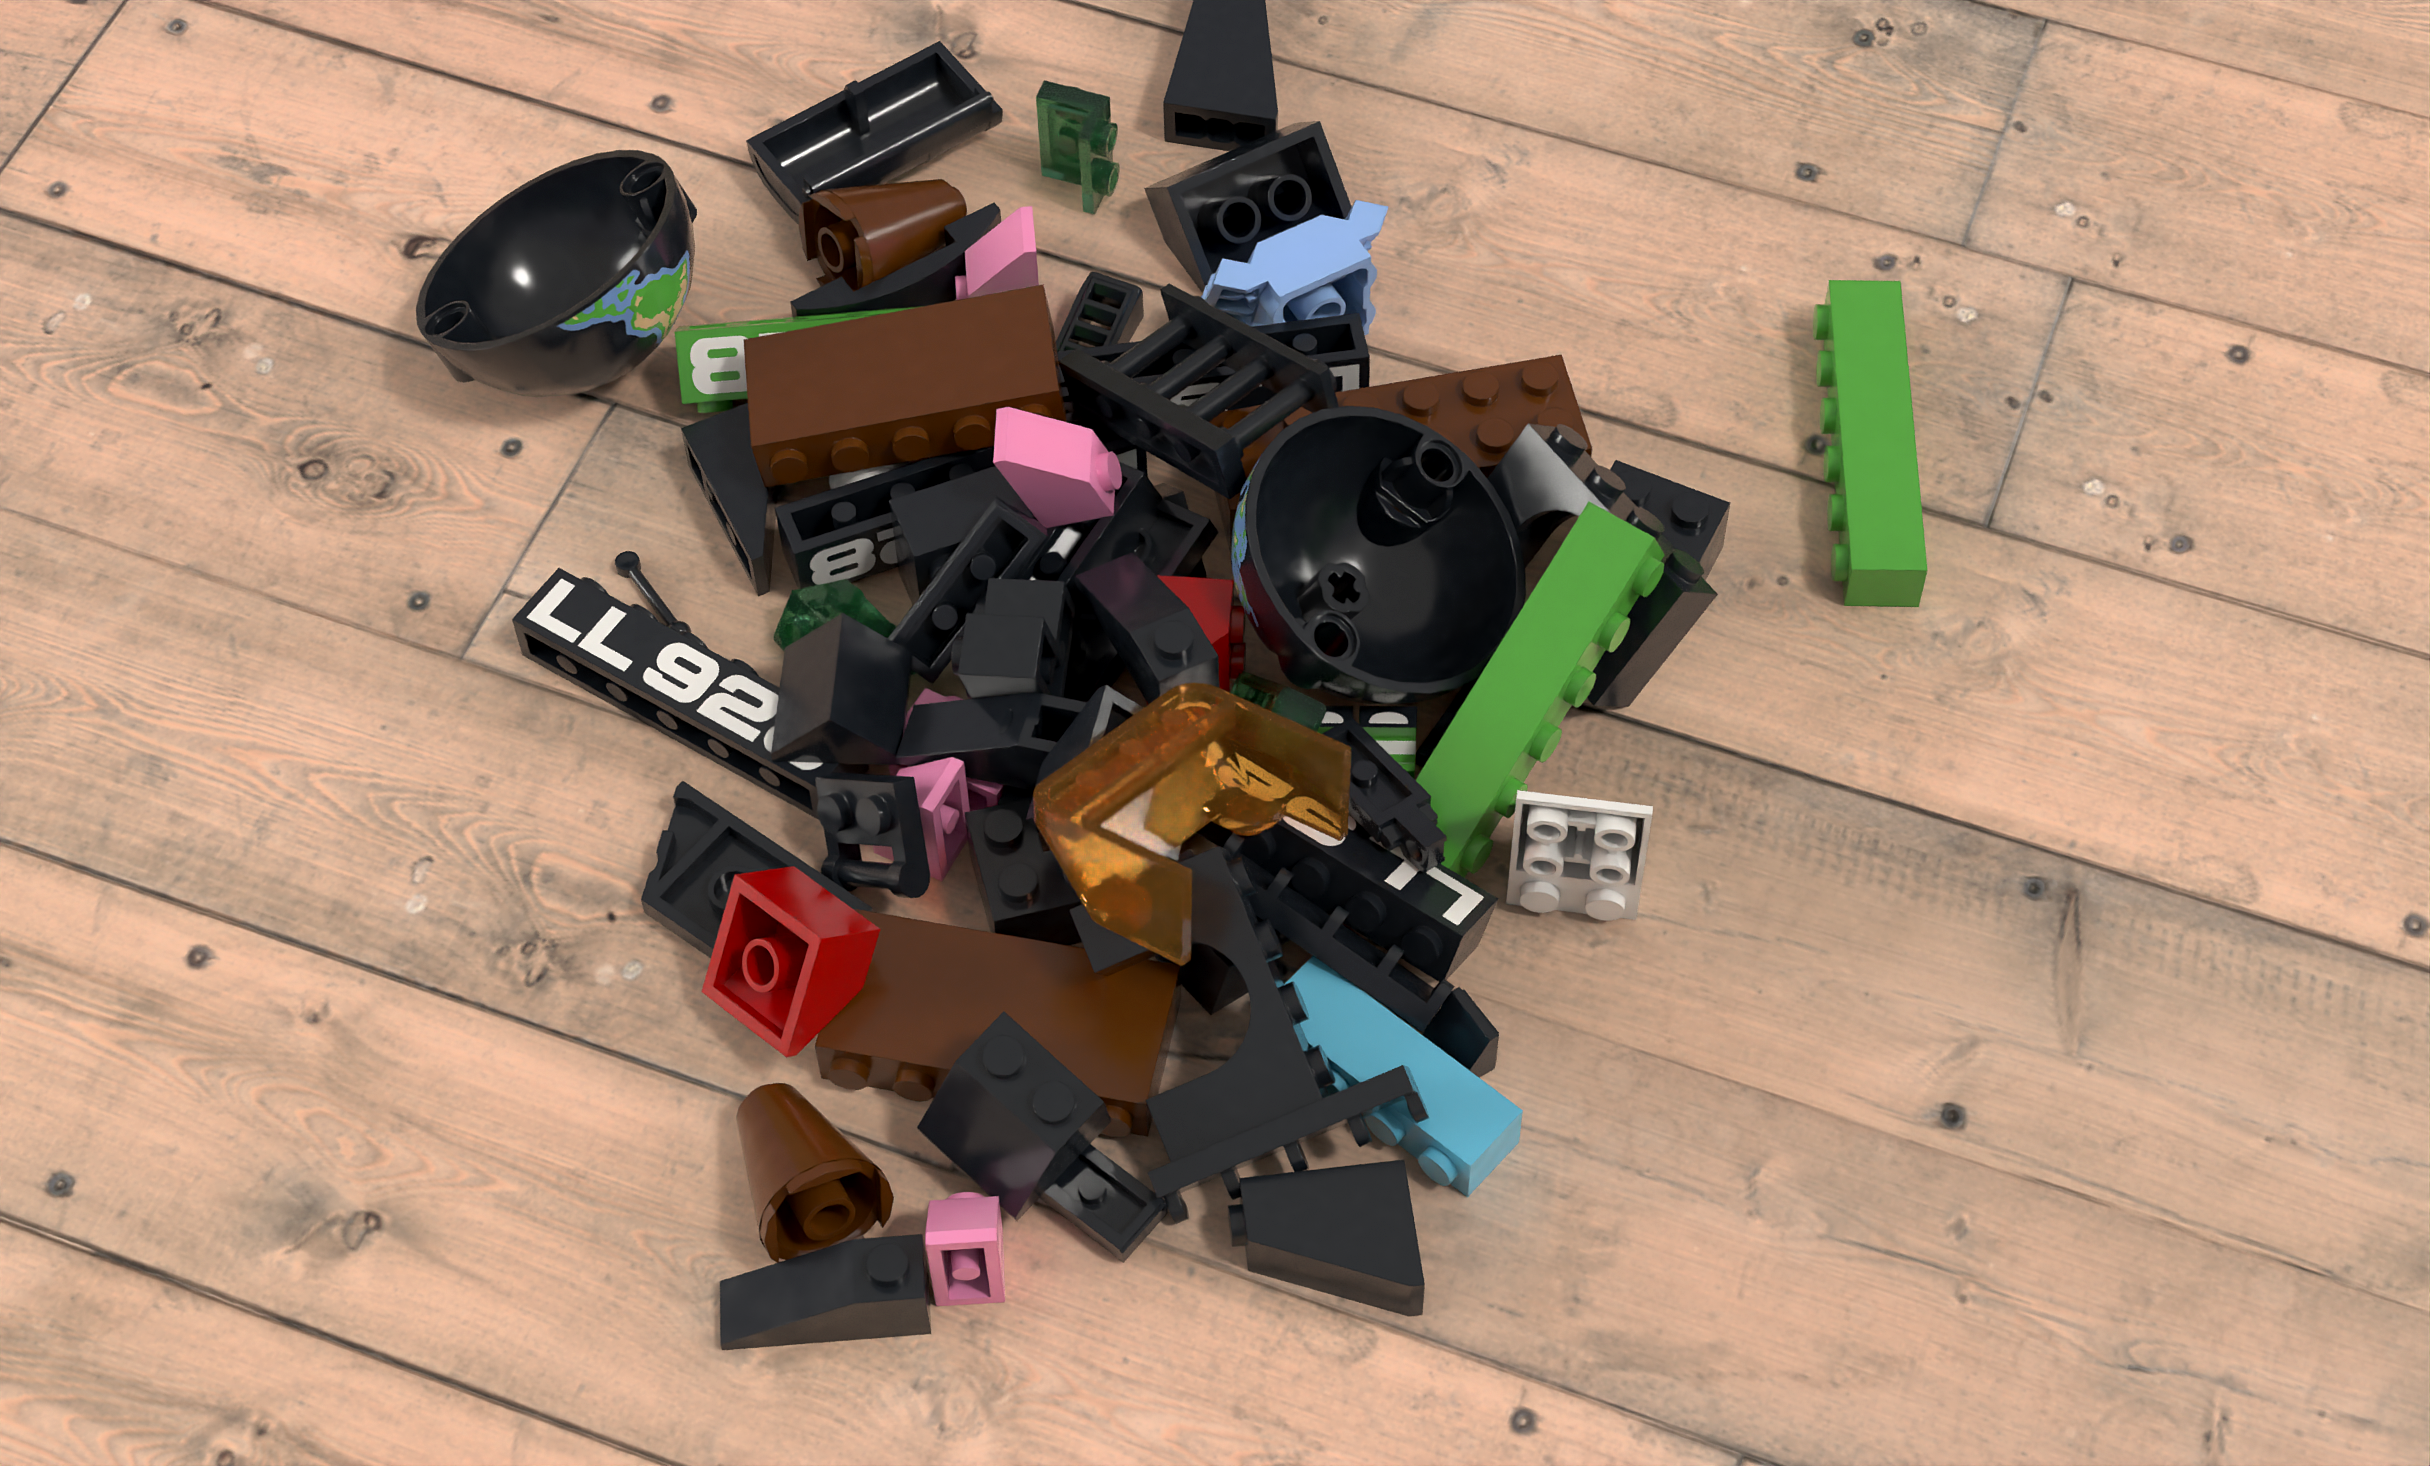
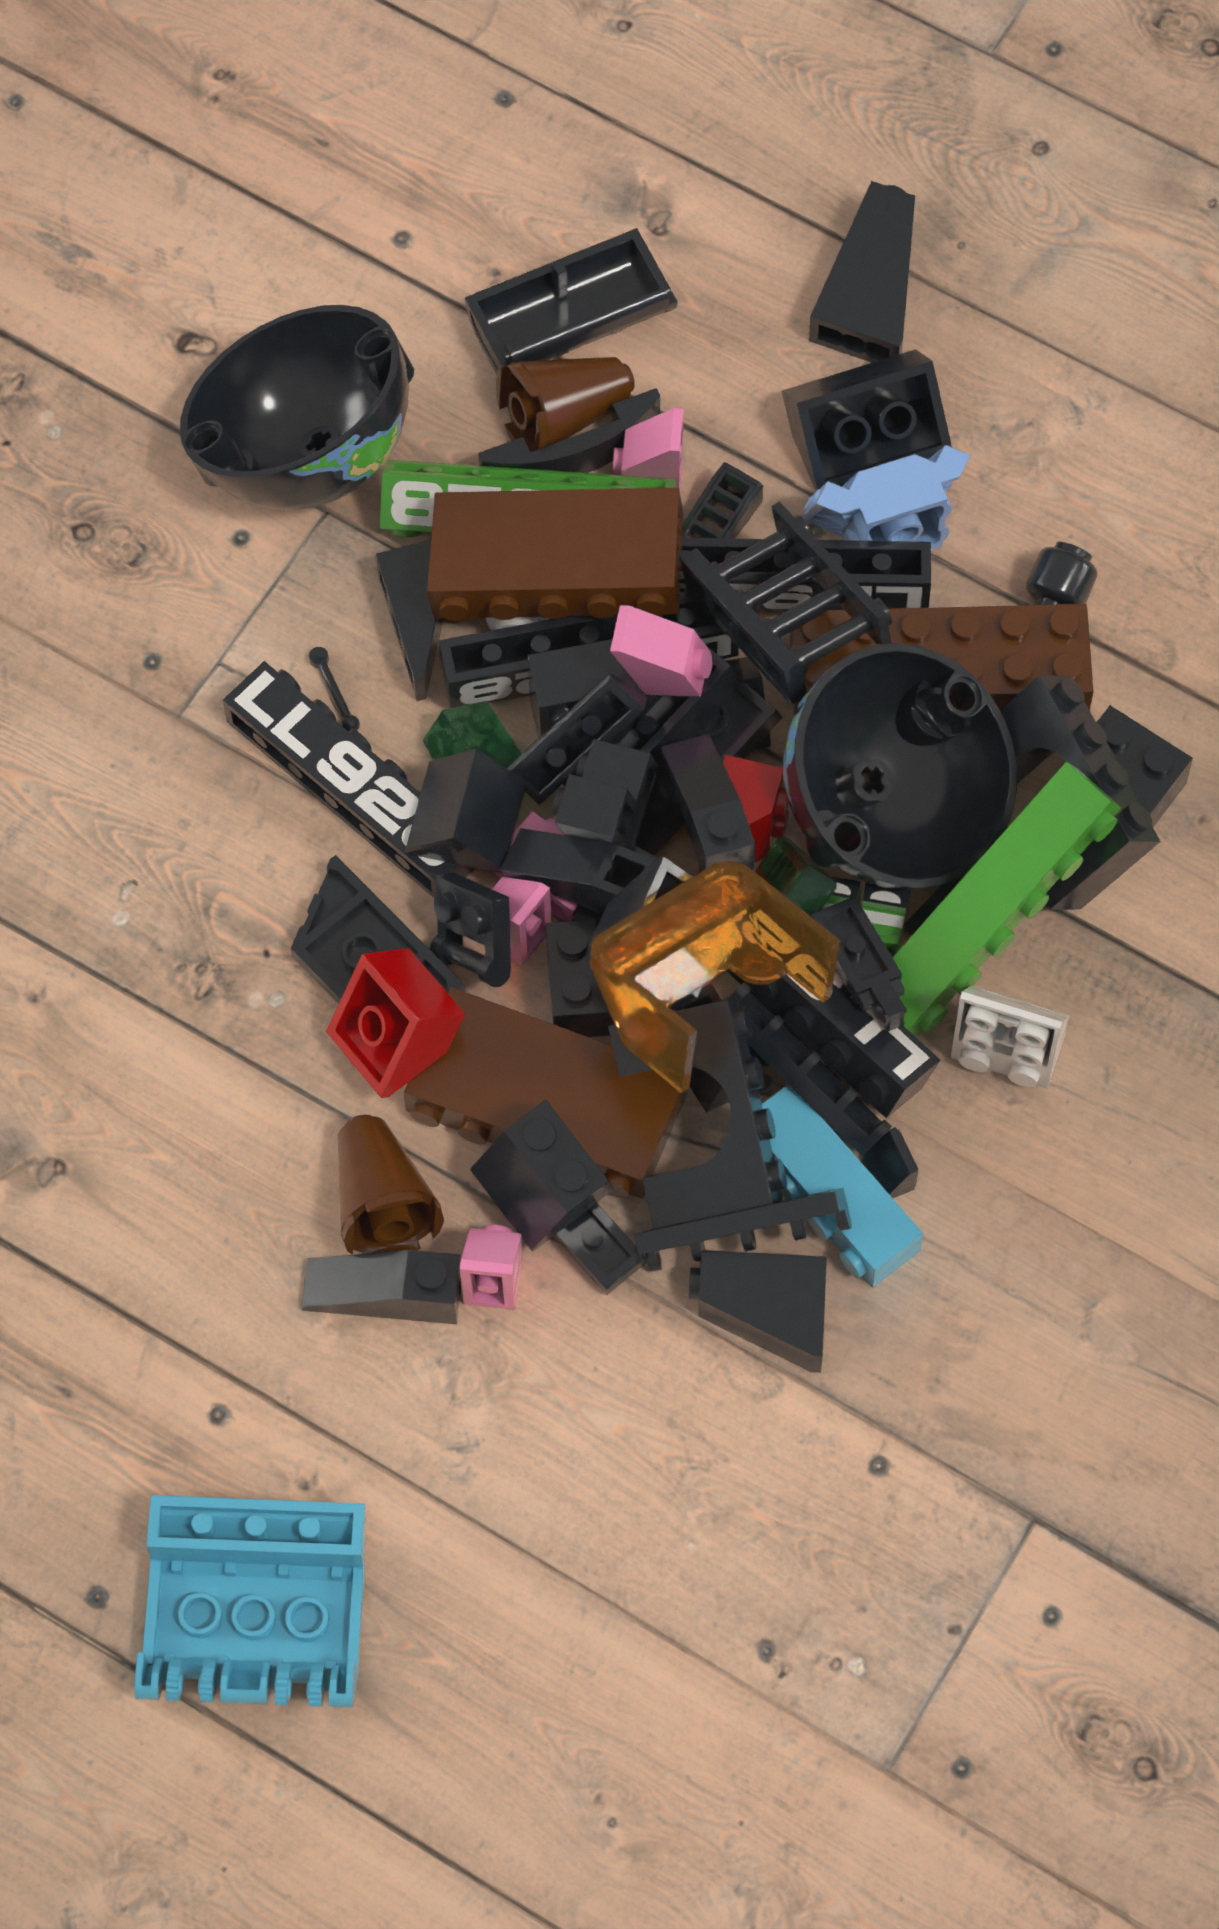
camera: 10 degrees right, 10 degrees up
(1077, 140) = (734, 341): clear green bracket -> none
(1521, 331) = (1062, 575): none -> black head

